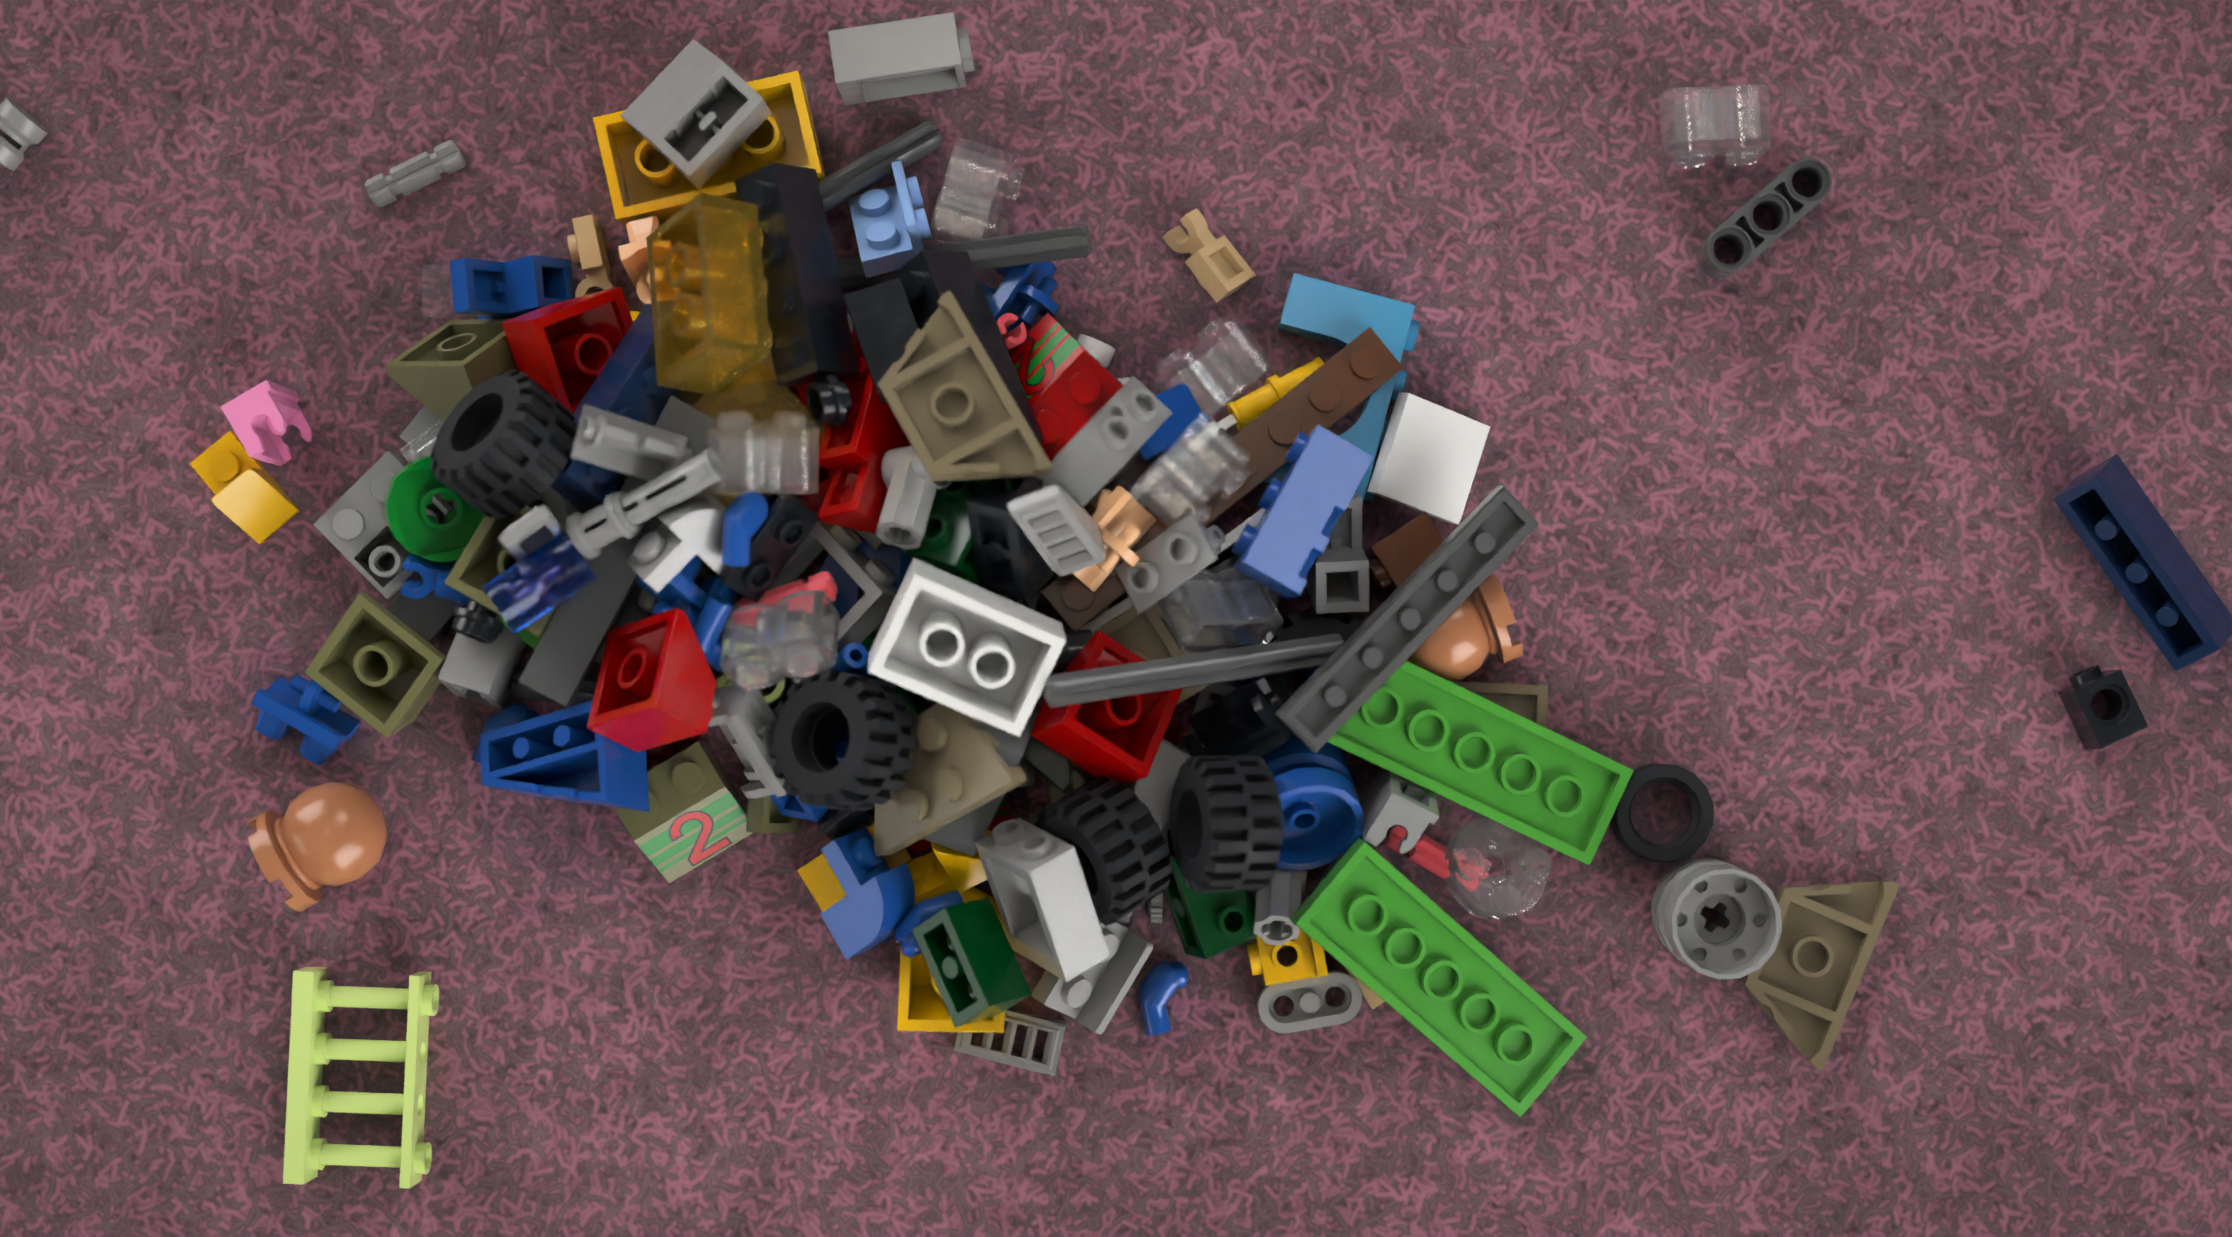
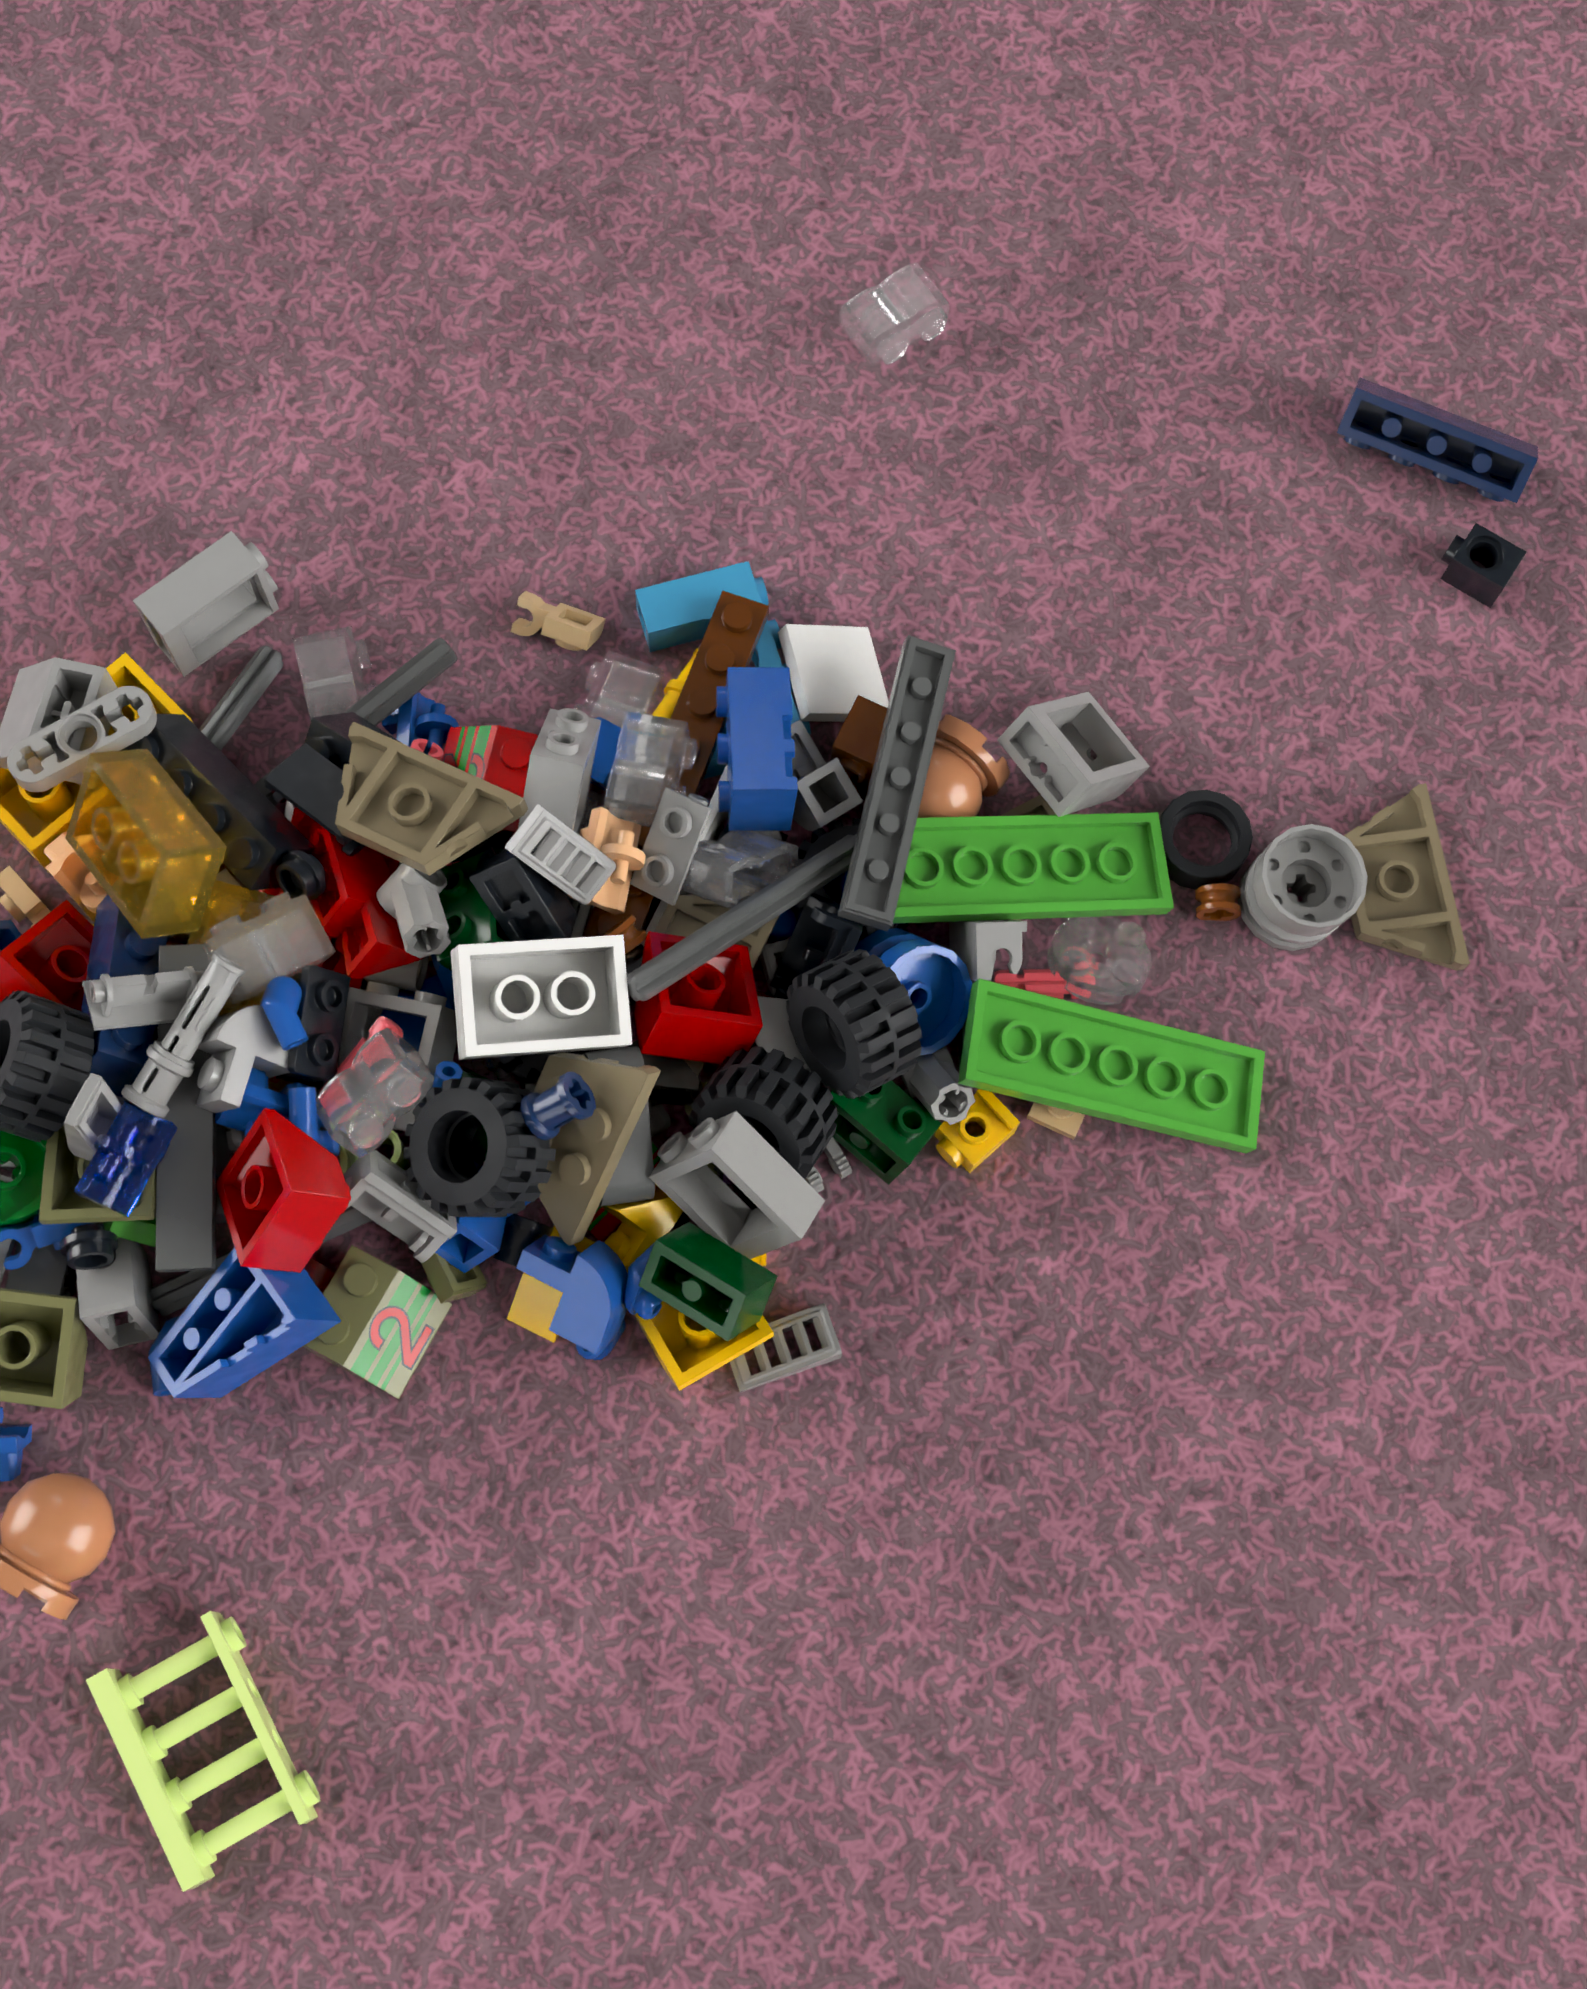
camera: 35 degrees left, 15 degrees down
(665, 176) = (88, 716): none -> light grey beam
(888, 225) = (275, 733): light blue bracket -> none
(914, 754) = (558, 1106): none -> dark blue bush
(1077, 616) = (627, 928): none -> dark orange bush
(1099, 990) = (828, 1255): light grey bracket -> none
(1156, 991) = (883, 1234): blue arm -> none
(1309, 1003) = (1017, 1162): light grey plate -> none
(1565, 699) = (1062, 738): none -> light grey window
(1636, 878) = (1218, 902): none -> dark orange bush
(1783, 204) = (979, 342): dark grey beam -> none

